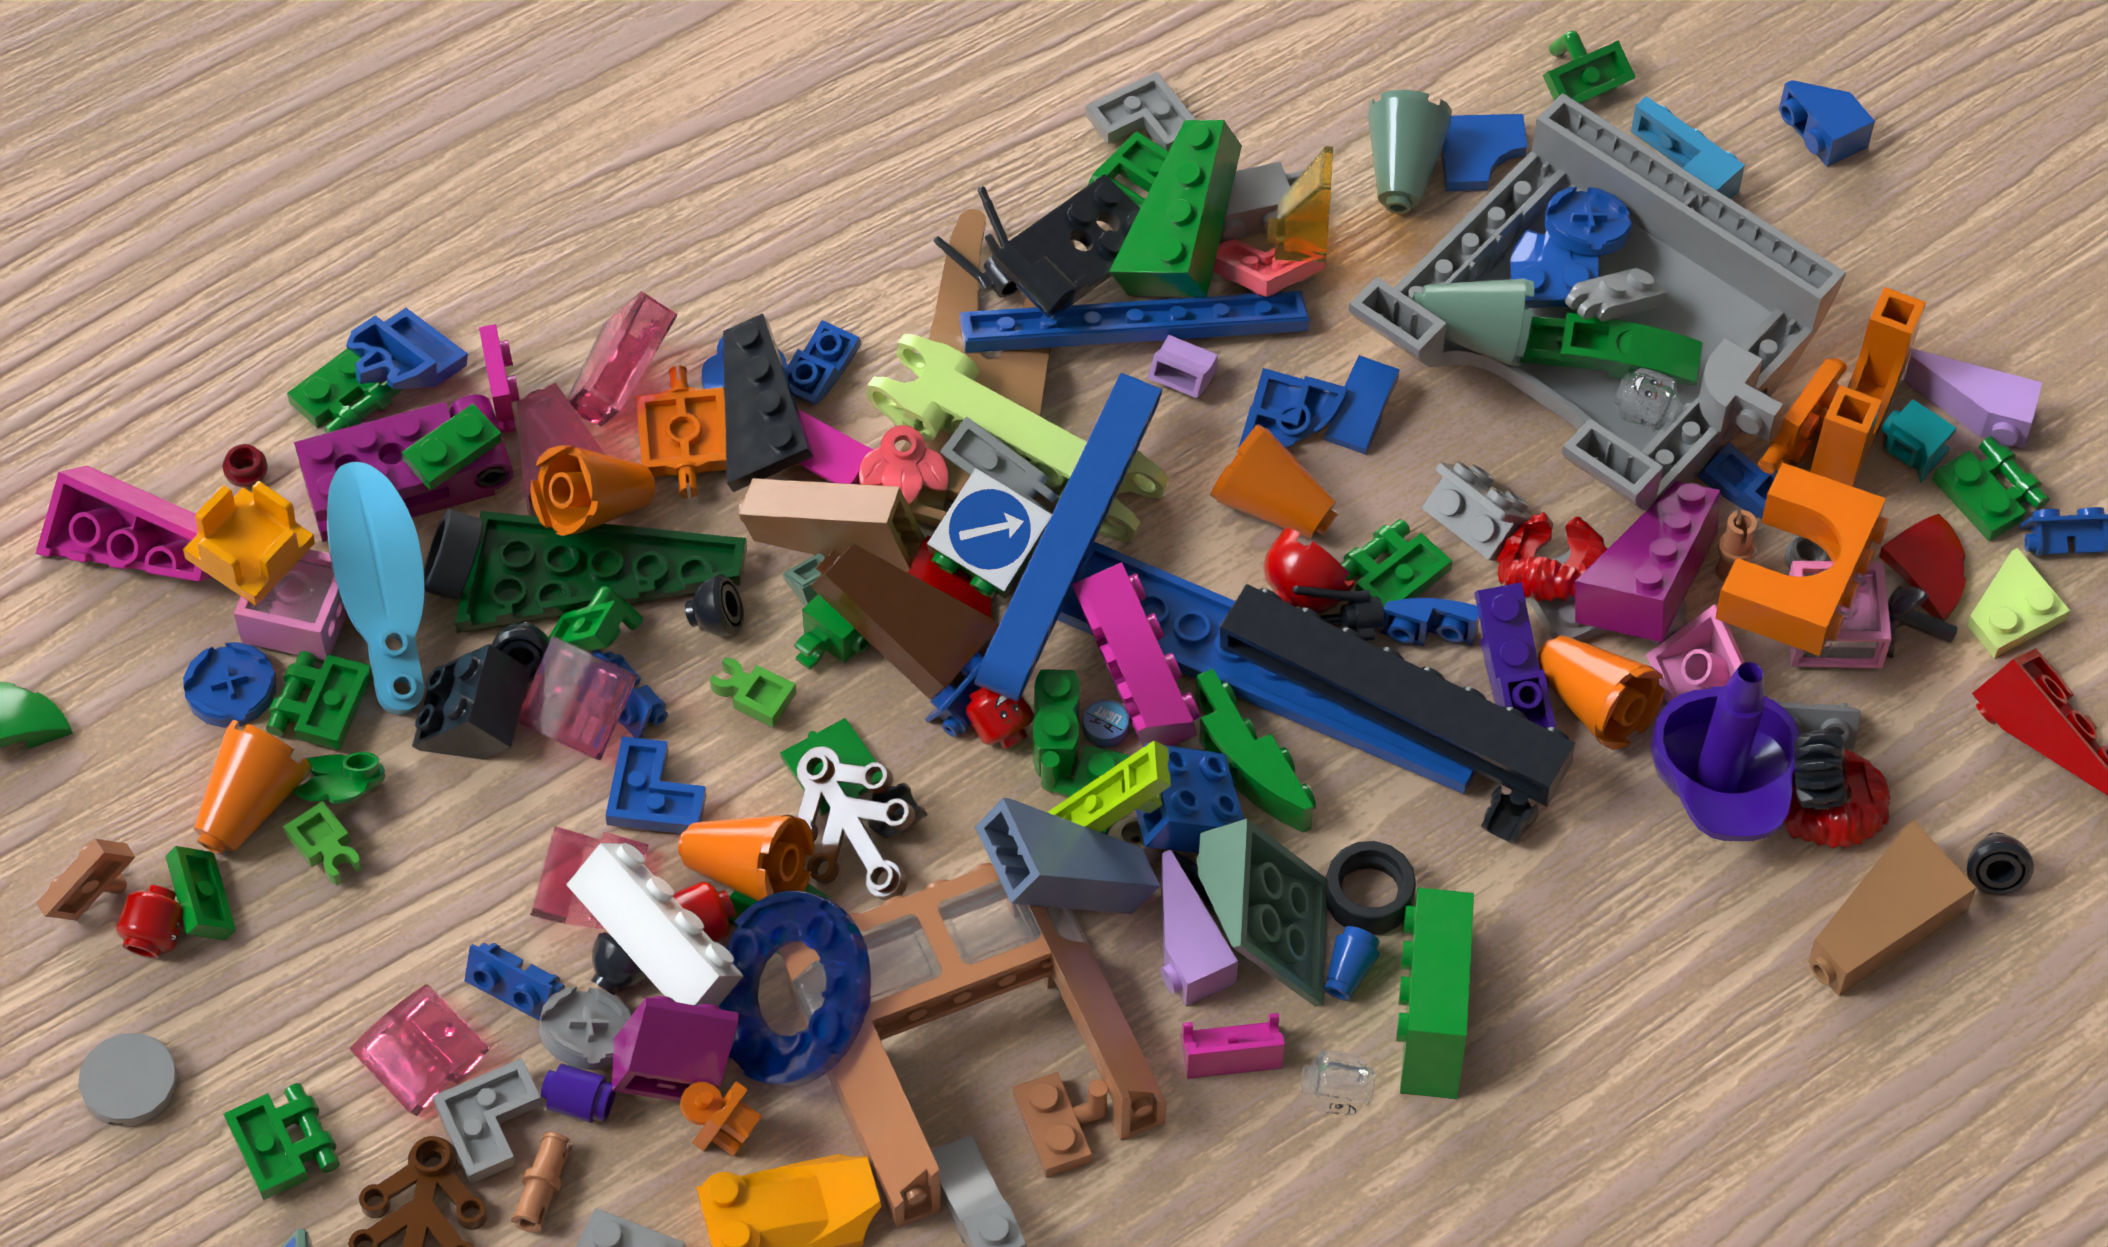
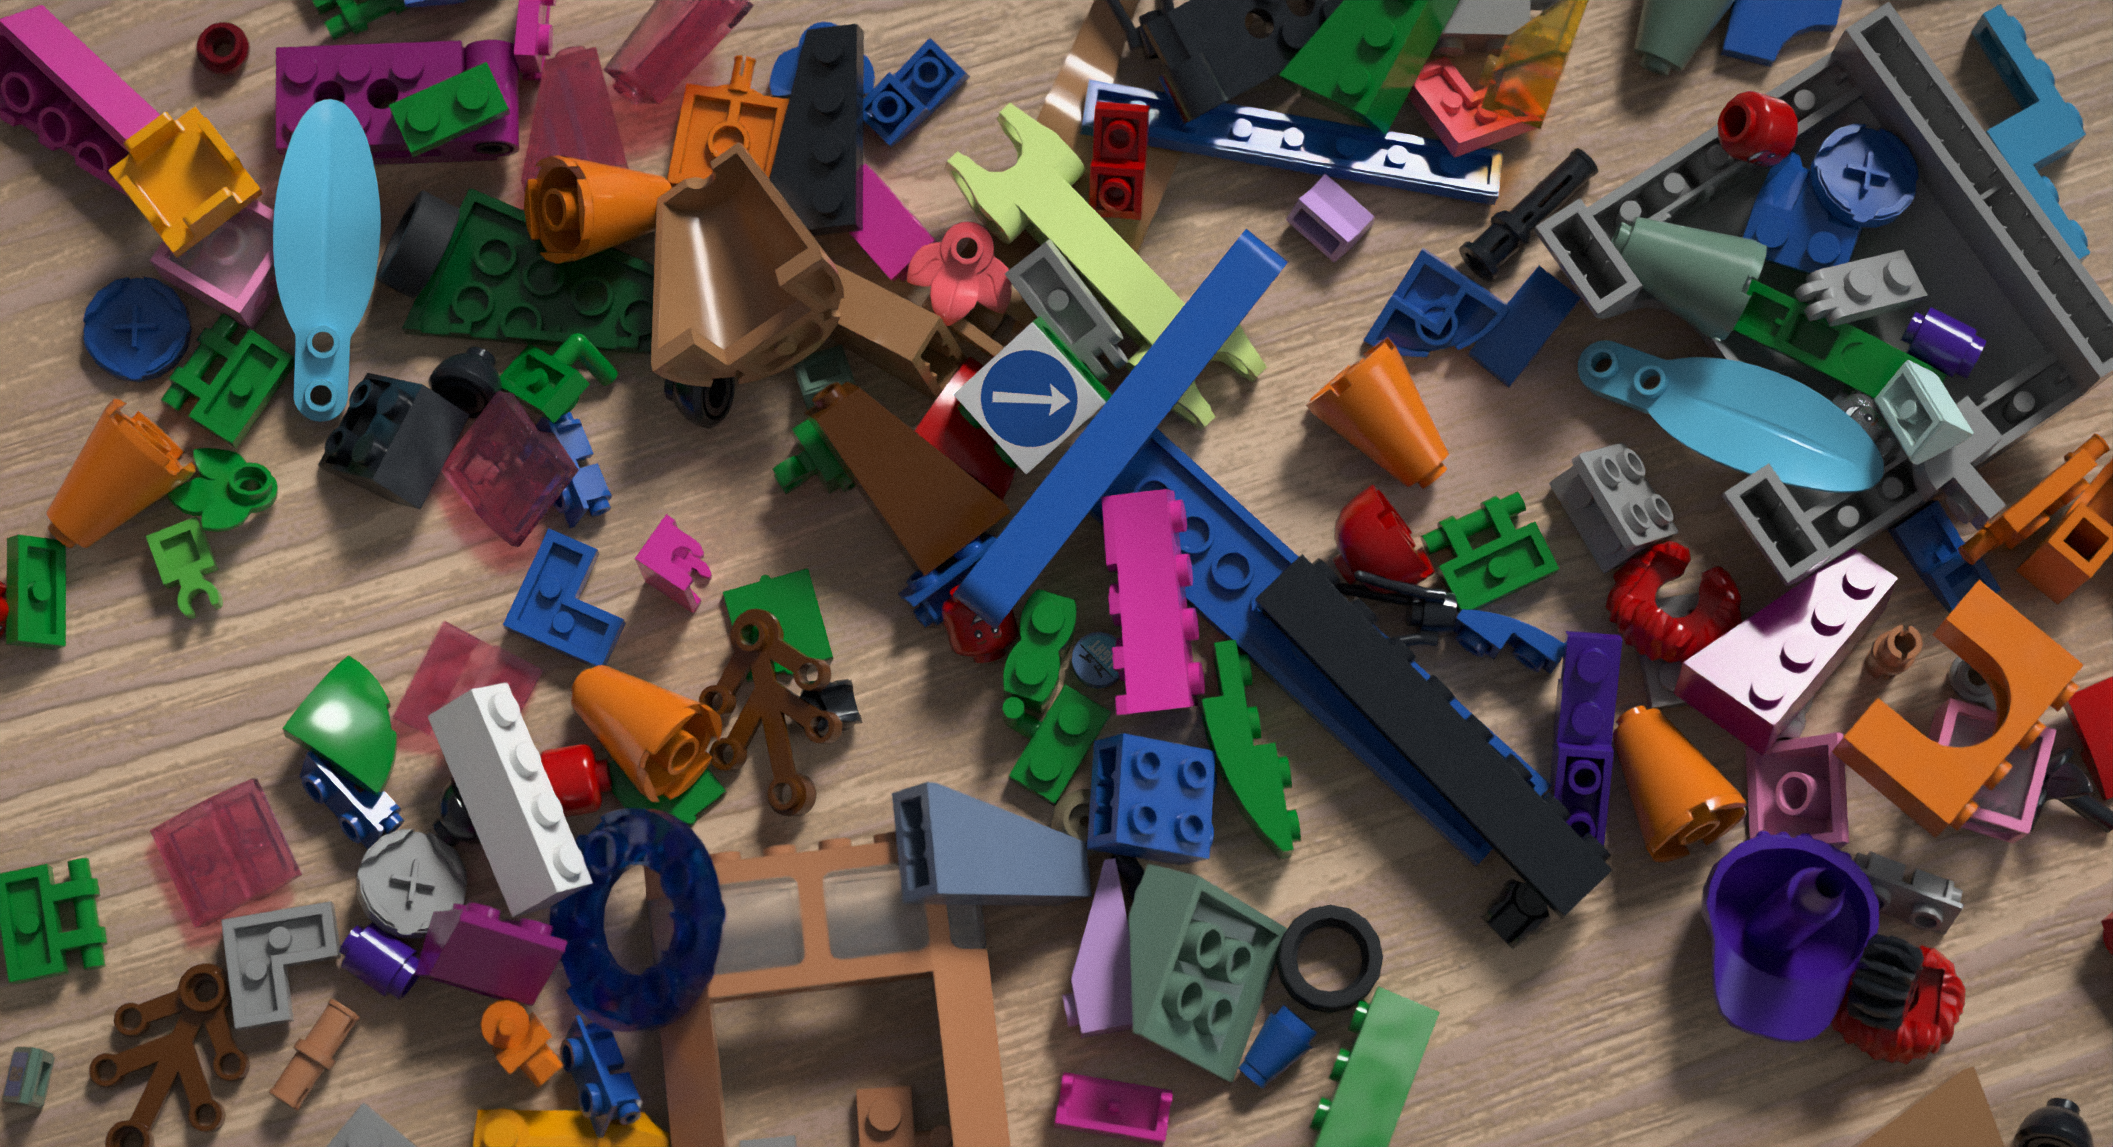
camera: 15 degrees right, 20 degrees up
(499, 921) = (348, 726): none -> green brick
(731, 500) = (736, 279): none -> medium nougat cone
(735, 735) = (668, 563): none -> dark pink hinge
(756, 695) = (718, 513): bright green plate -> none
(791, 1131) = (589, 1056): none -> blue hinge
(1003, 356) = (1119, 159): none -> red slope
(1126, 787) = (1054, 790): lime hinge -> none
(1318, 351) = (1507, 225): none -> black pin
(1494, 205) = (1757, 128): none -> red head
(1549, 410) = (1741, 416): none -> medium azure plant
(1692, 319) = (1943, 342): none -> dark purple brick
(1692, 359) = (1921, 413): none -> light aqua slope

